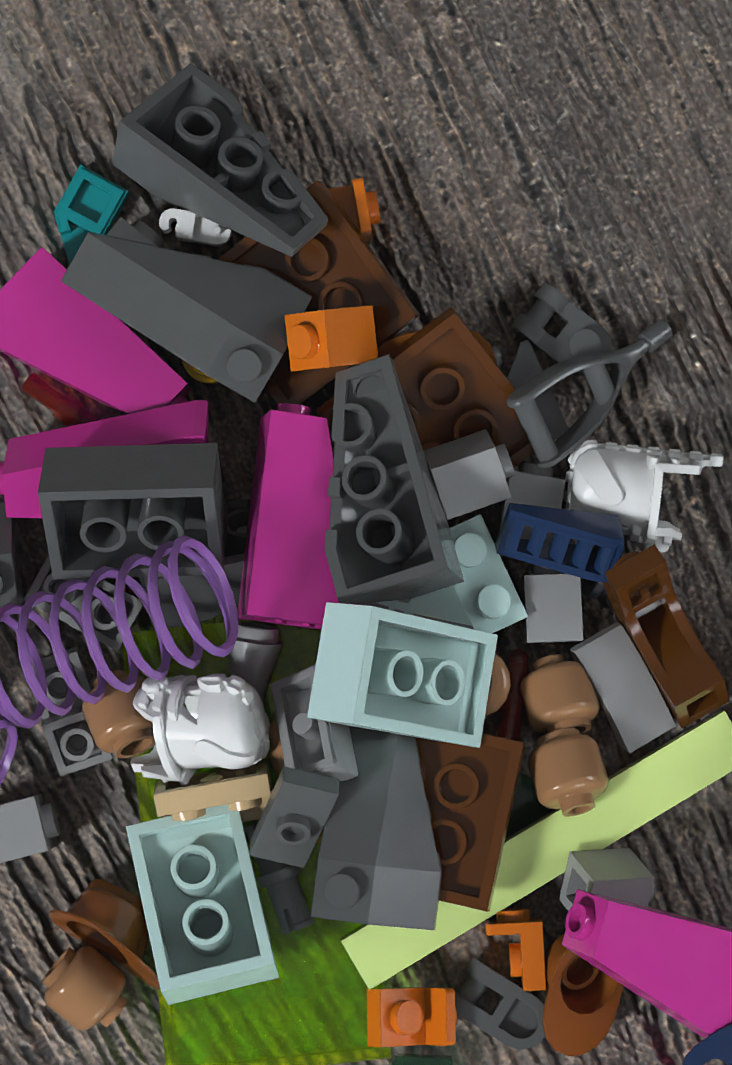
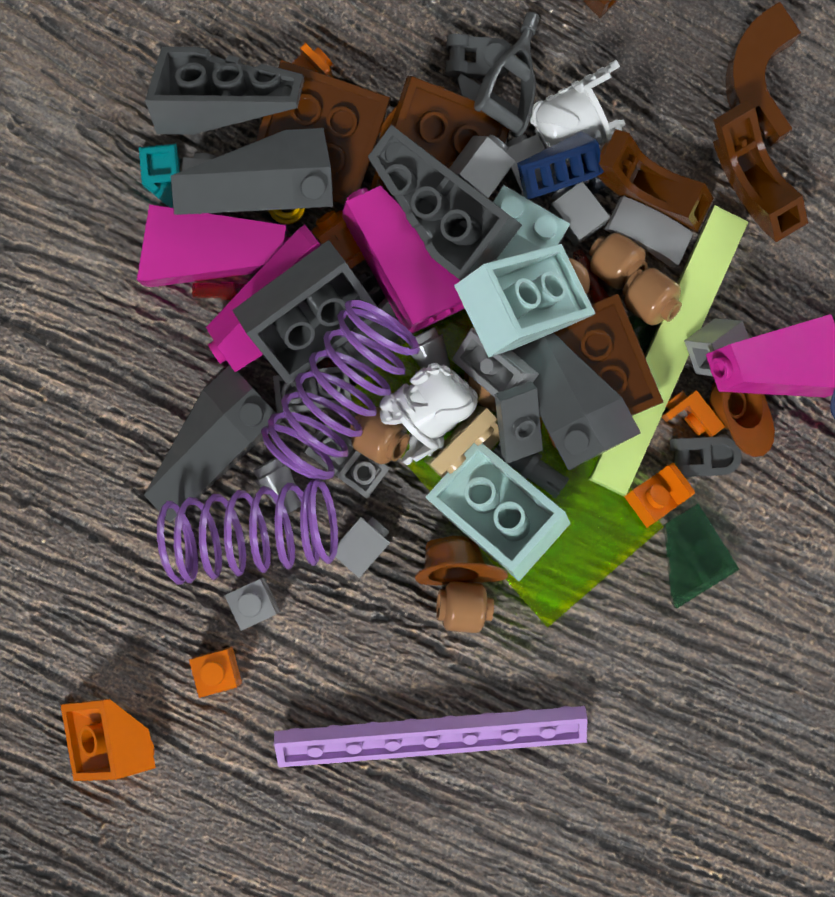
camera: 35 degrees left, 0 degrees up
(194, 228) = (229, 137): white piece -> none
(237, 439) = (333, 228): none -> orange bracket
(331, 338) = (350, 140): orange brick -> none

